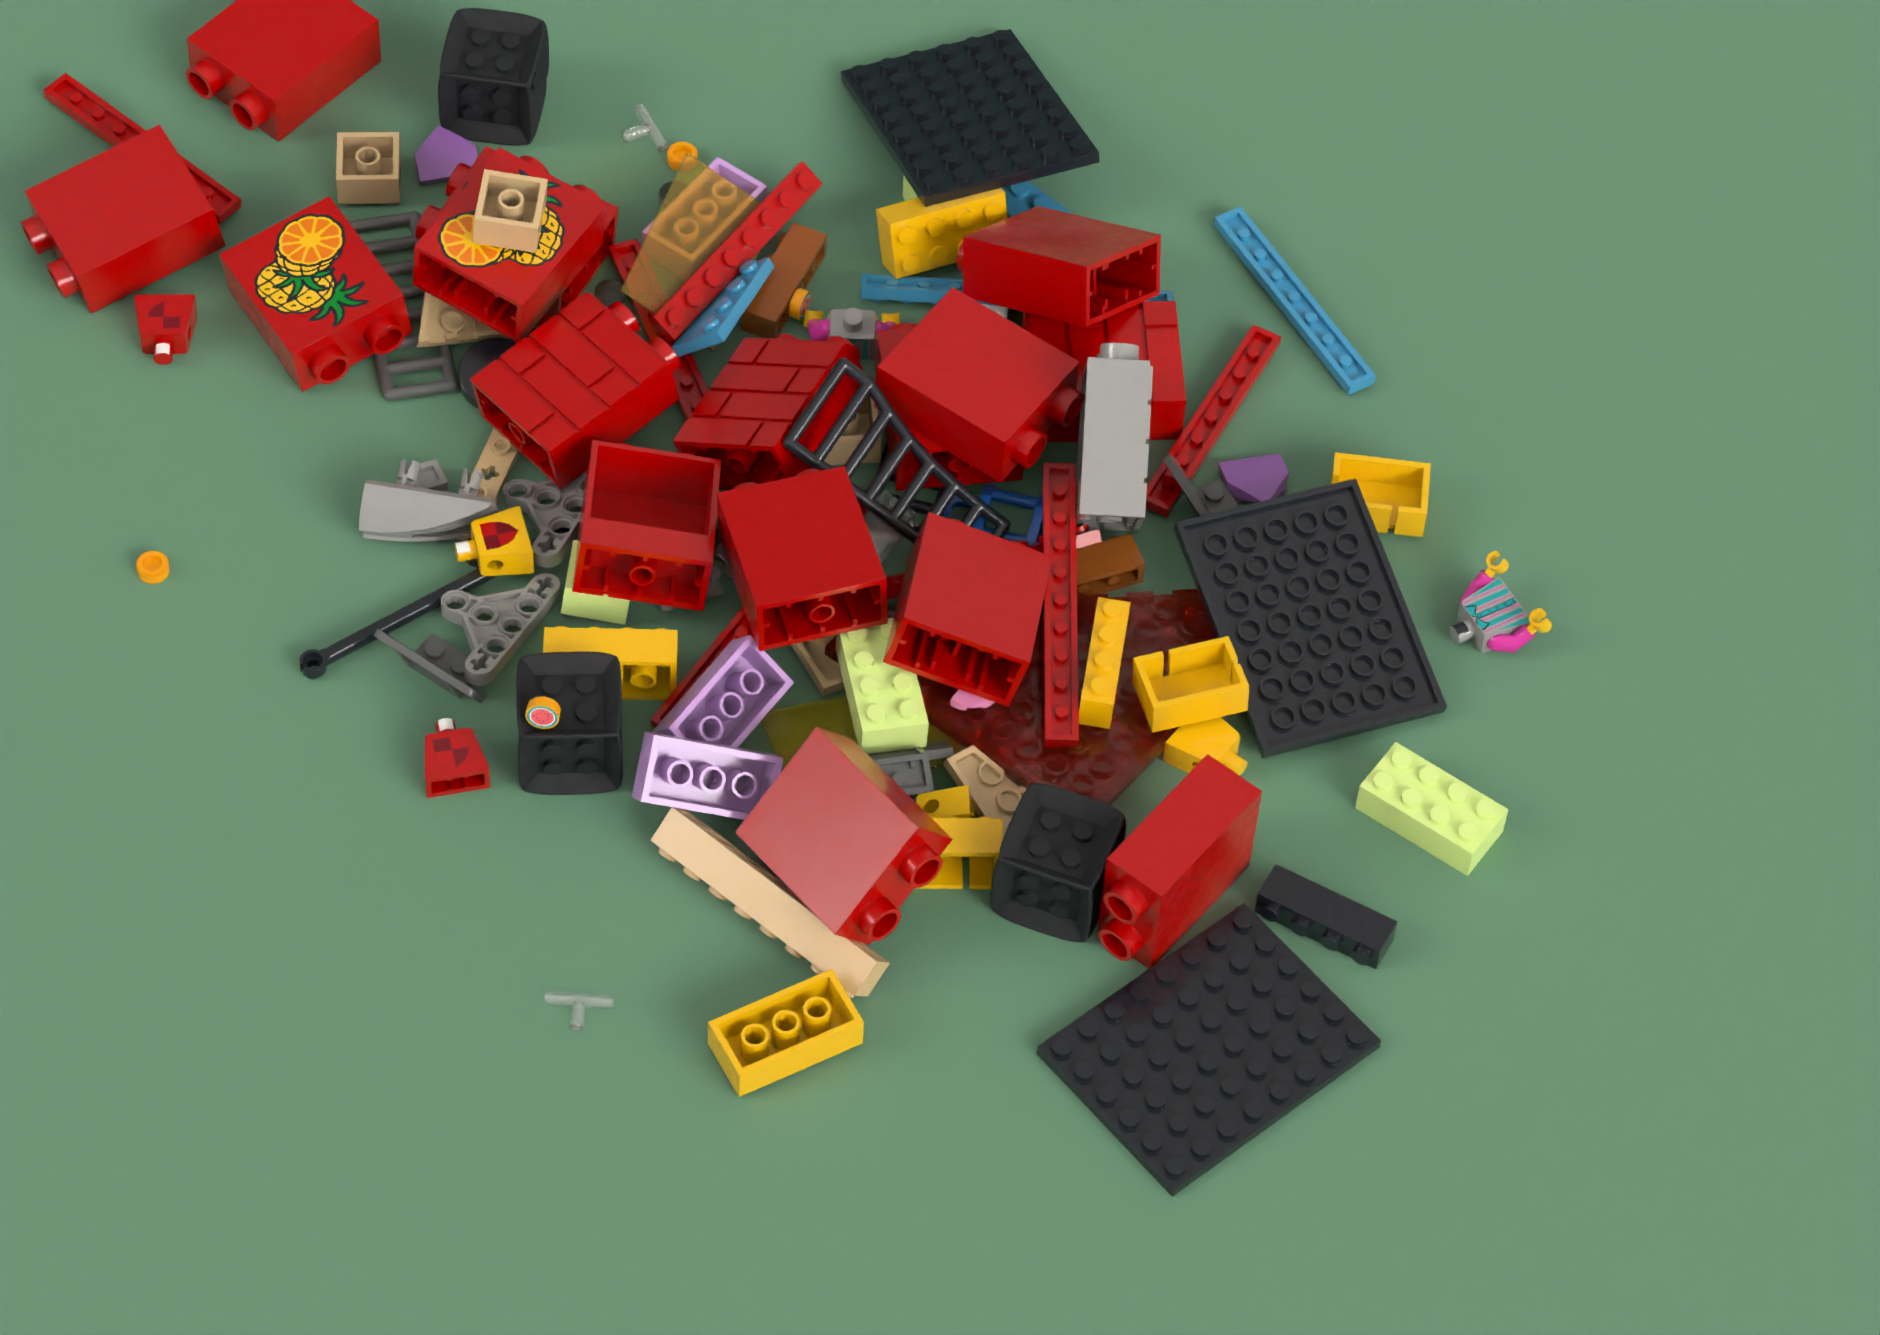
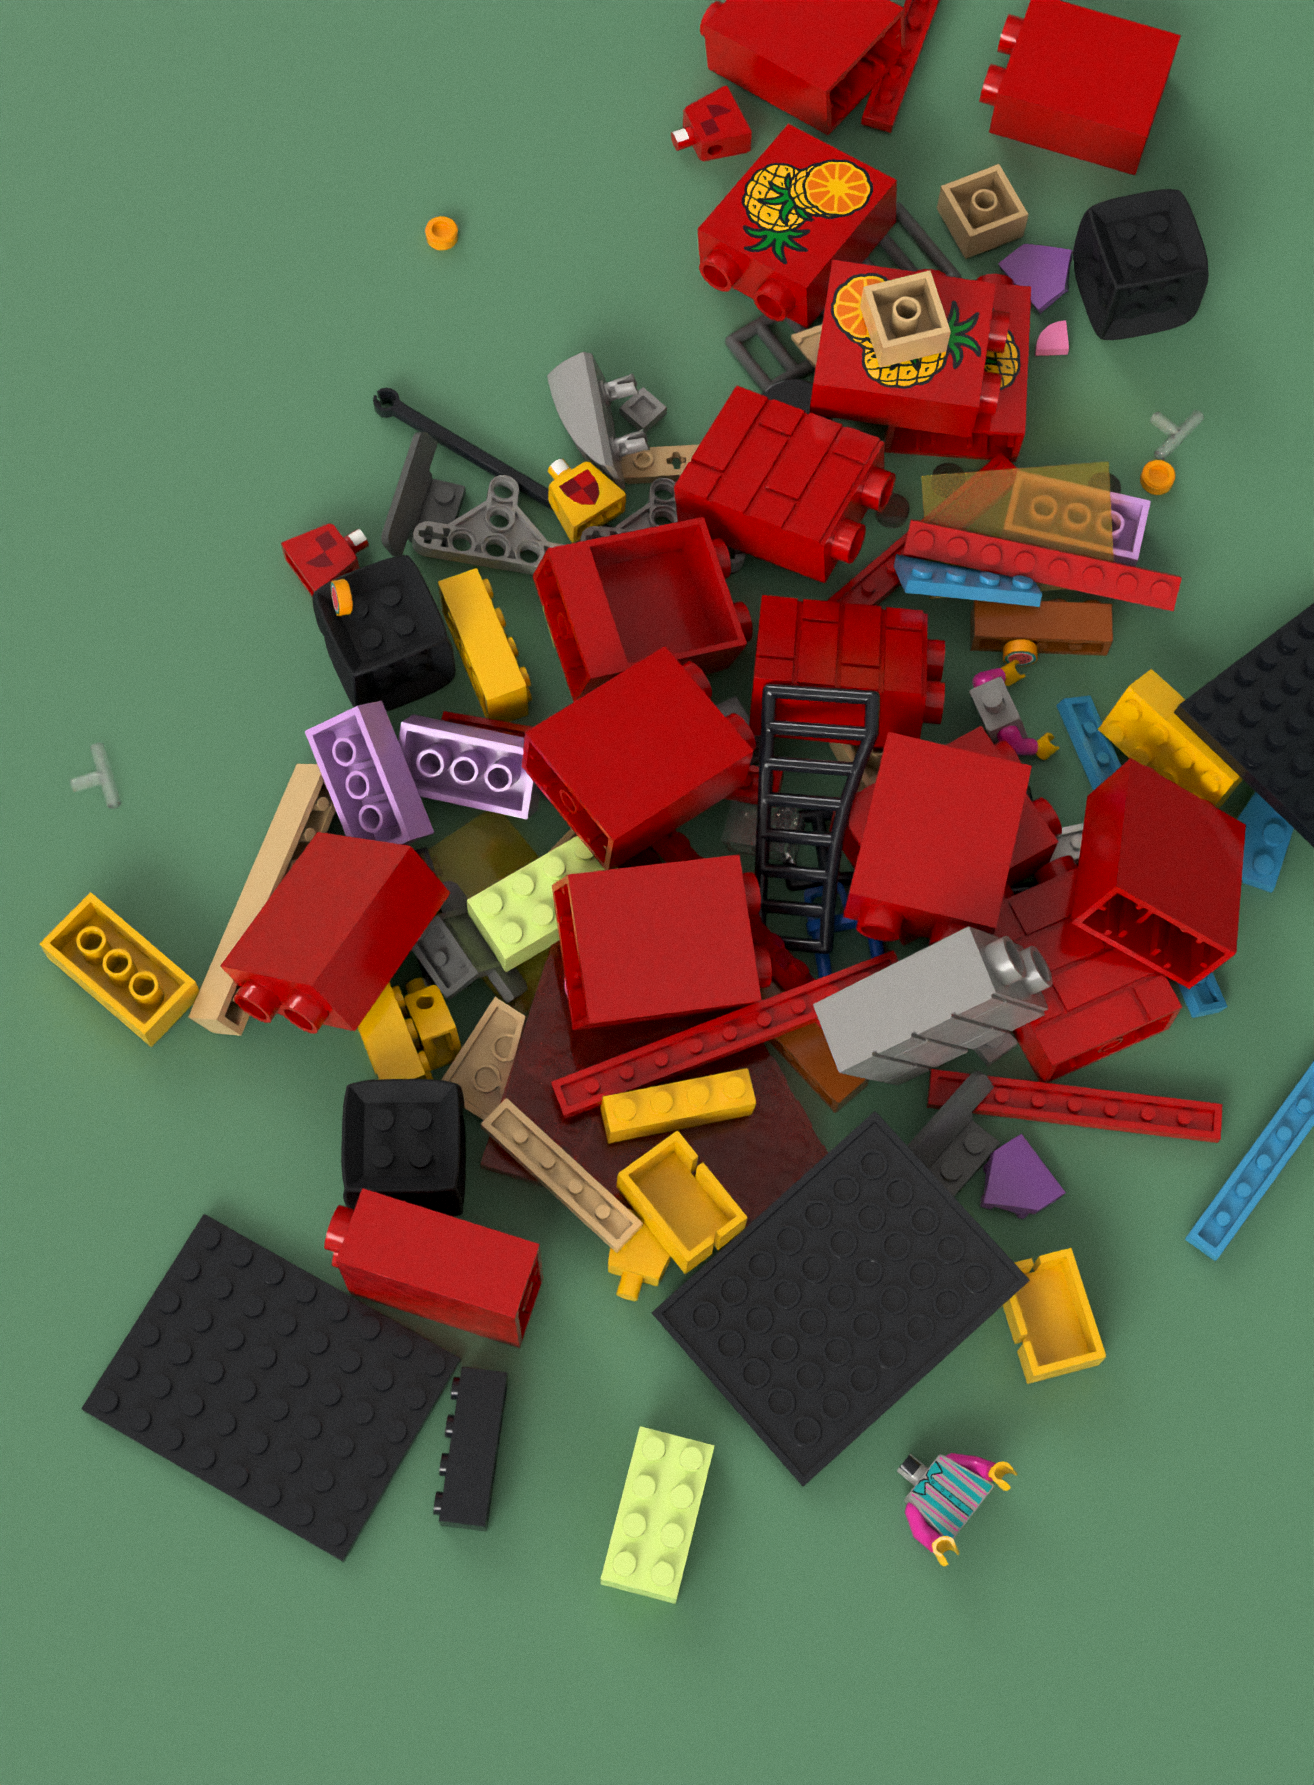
camera: 70 degrees right, 15 degrees up
(1131, 760) = (561, 1175): none -> tan plate

